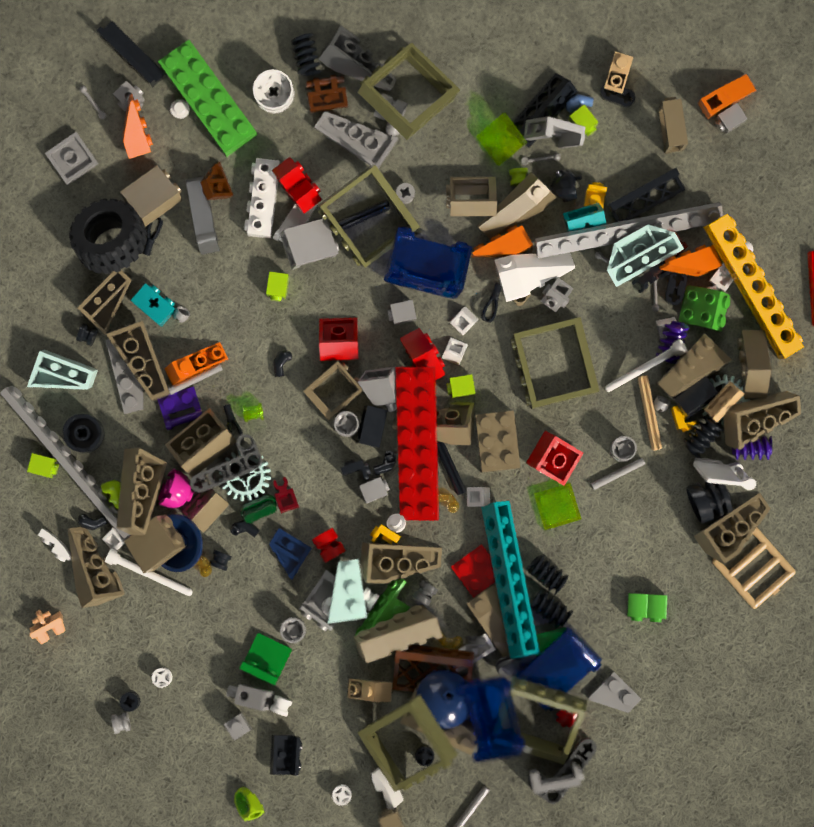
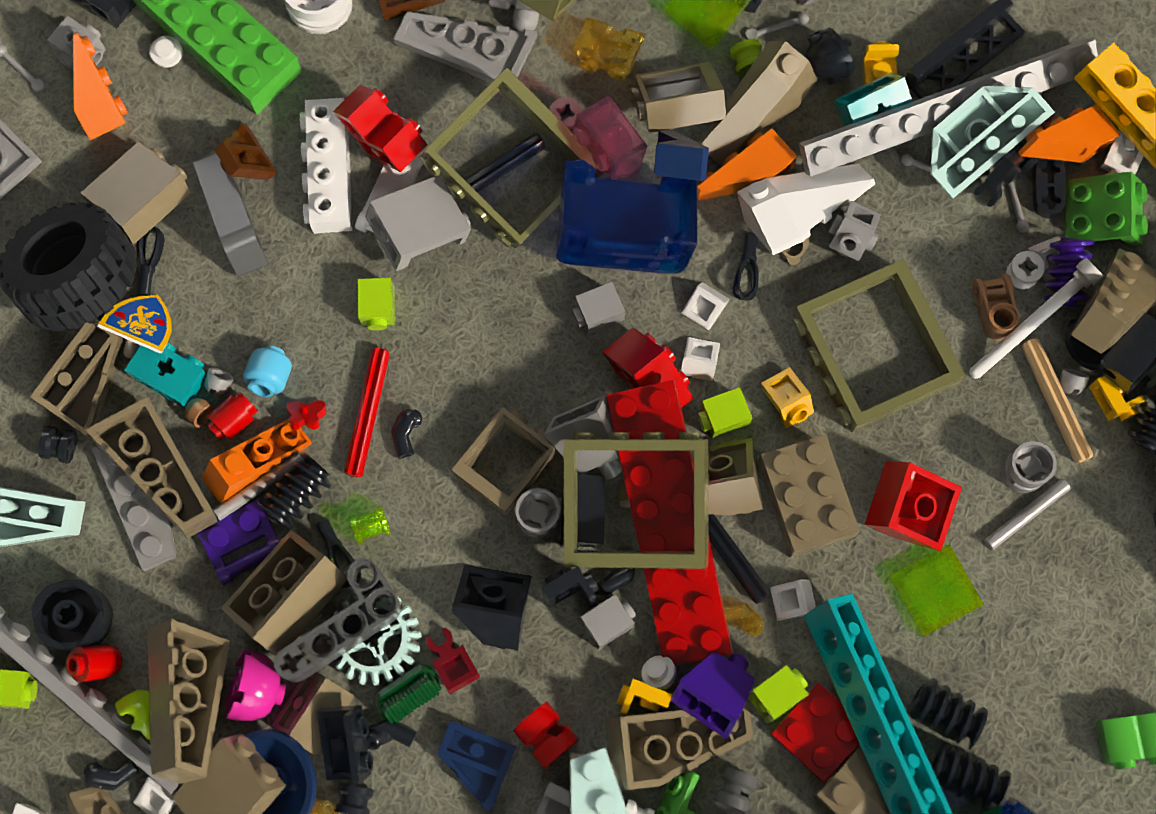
camera: 10 degrees left, 10 degrees down
(92, 460) = (94, 662): none -> red brick
(143, 274) = (141, 322): none -> shield
(168, 330) = (197, 411): none -> medium nougat hinge
(186, 336) = (231, 416): none -> red brick
(210, 314) = (267, 371): none -> medium azure head
(215, 387) = (297, 491): none -> black piece
(220, 529) = (344, 743): none -> black bracket
(227, 342) = (304, 414): none -> red piece
(261, 347) = (366, 412): none -> red axle
(312, 469) = (492, 605): none -> black slope
(338, 339) = (497, 373): red slope -> none
(392, 460) = (637, 559): none -> olive window
(424, 539) = (716, 691): none -> dark purple torso
(426, 216) = (610, 139): none -> clear pink slope
(438, 156) = (608, 49): none -> clear yellow cylinder
(457, 547) = (779, 693): none -> lime brick
(463, 236) = (680, 157): none -> dark blue slope
(499, 383) = (788, 397): none -> yellow bracket
(628, 348) = (993, 300): none -> medium nougat piece
(647, 336) = (1022, 277): none -> white wheel

